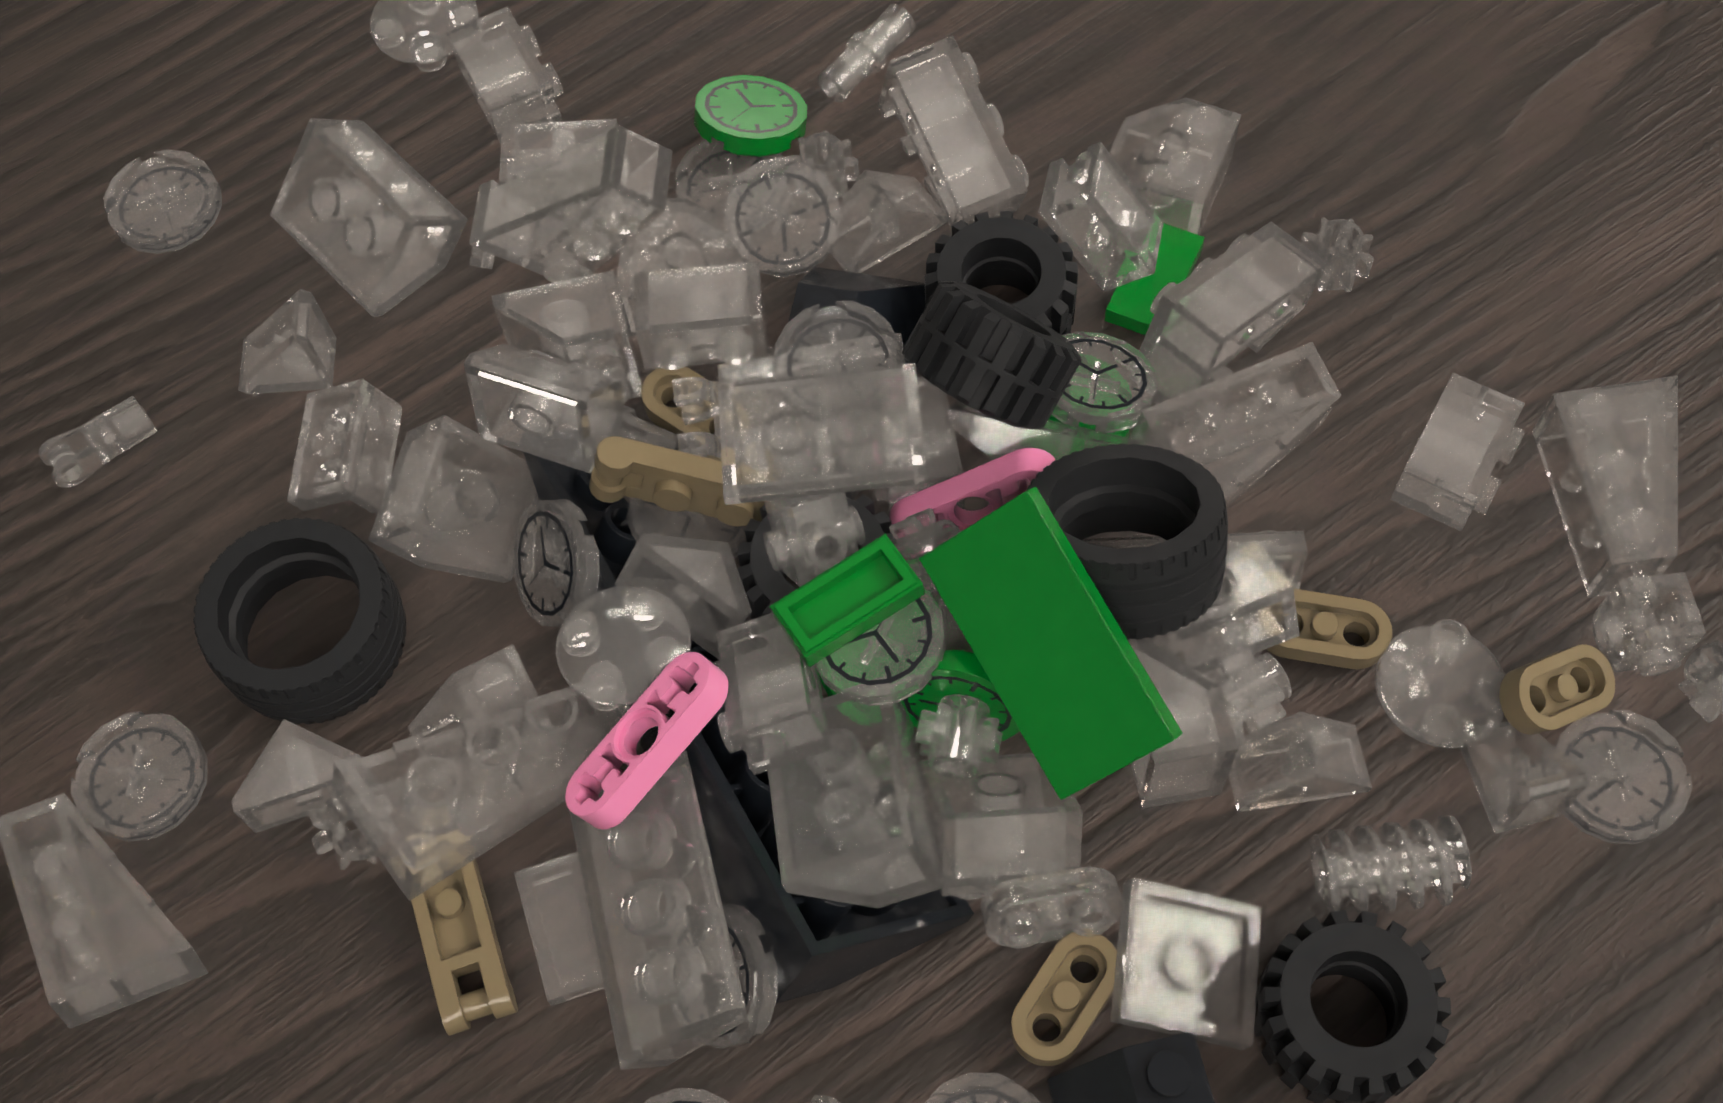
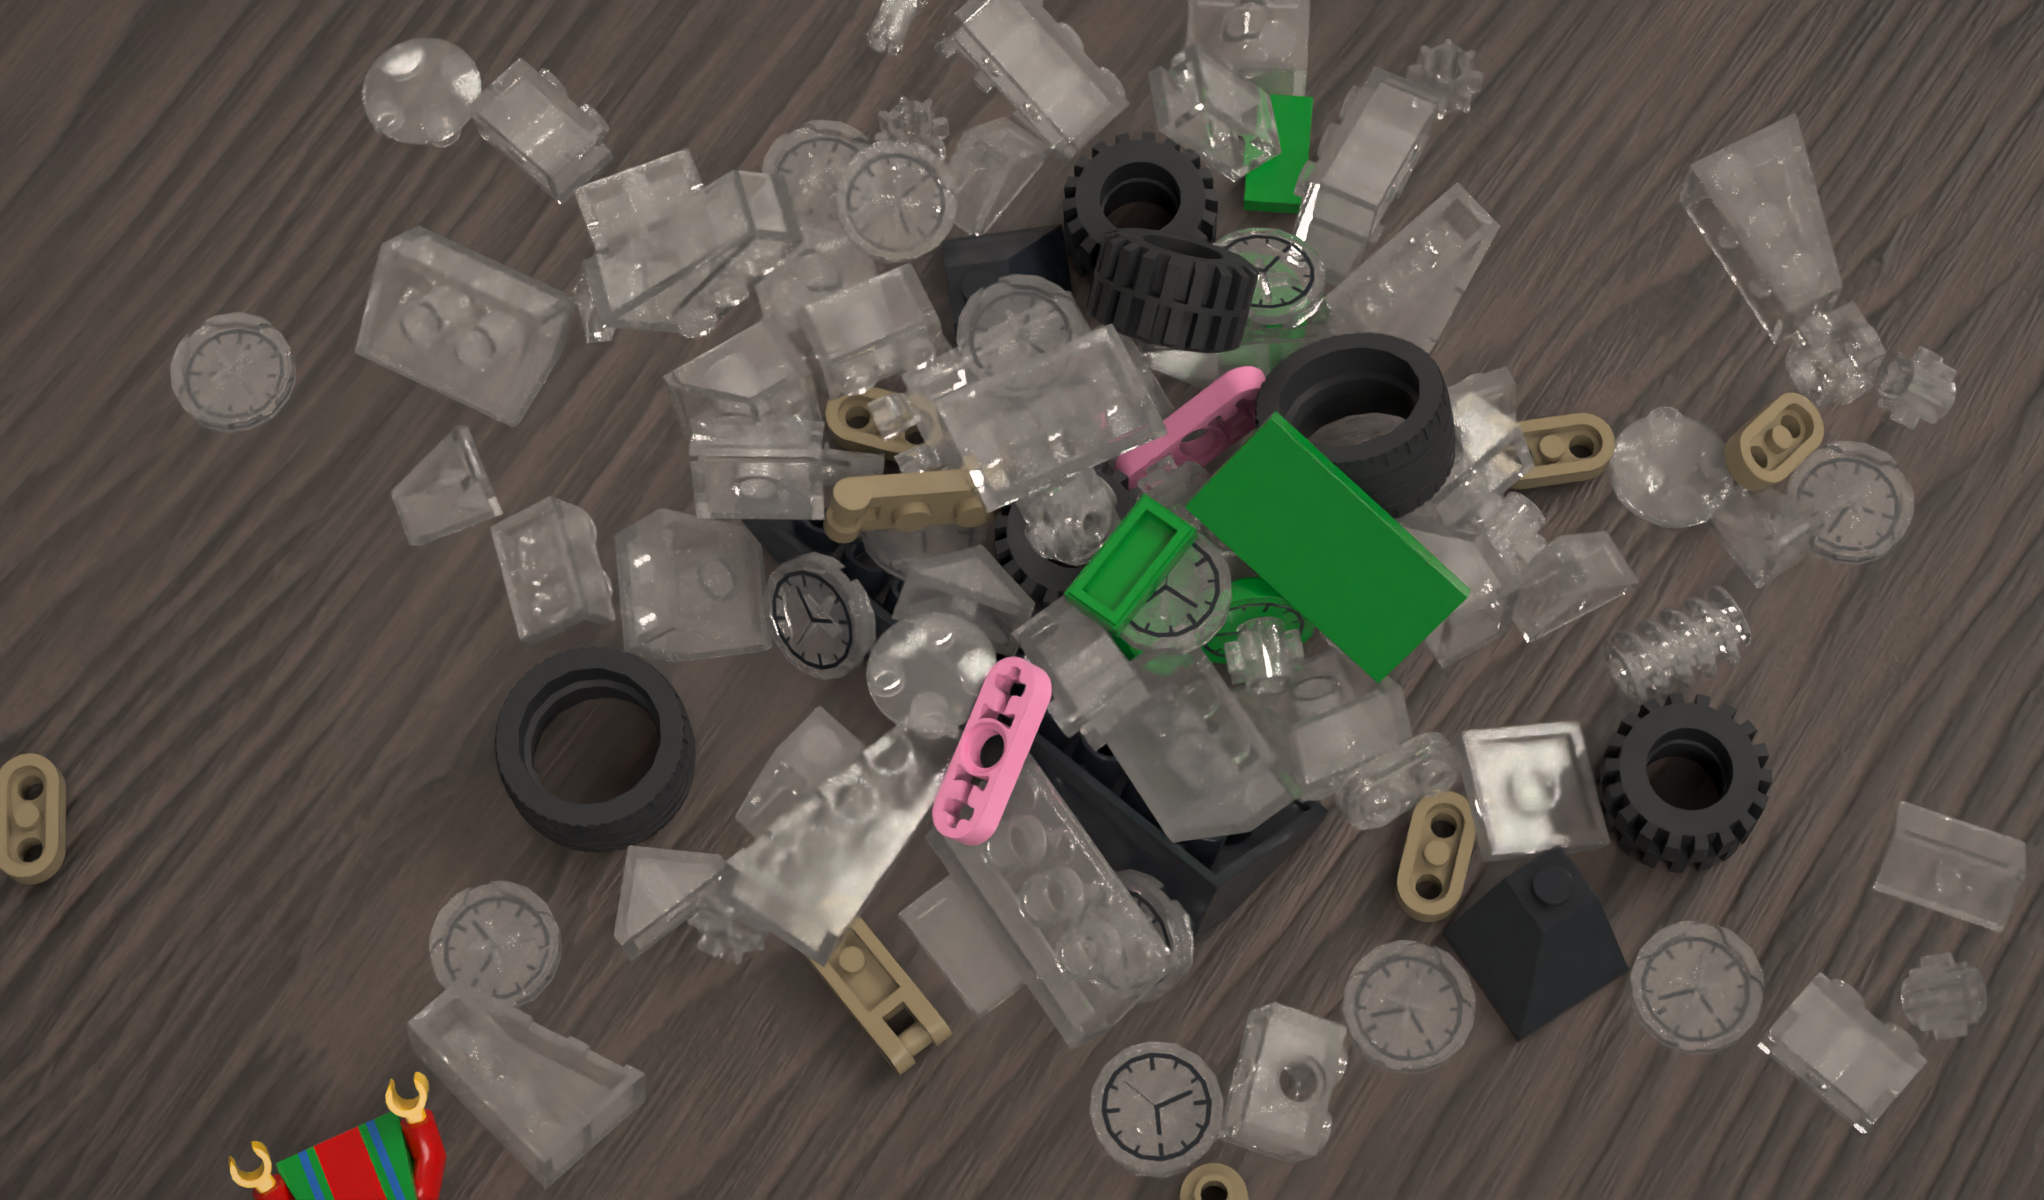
camera: 20 degrees left, 5 degrees up
(90, 446) = (300, 633): clear bar -> none
(750, 114) = (815, 99): tile -> none
(1458, 451) = (1620, 244): clear brick -> none

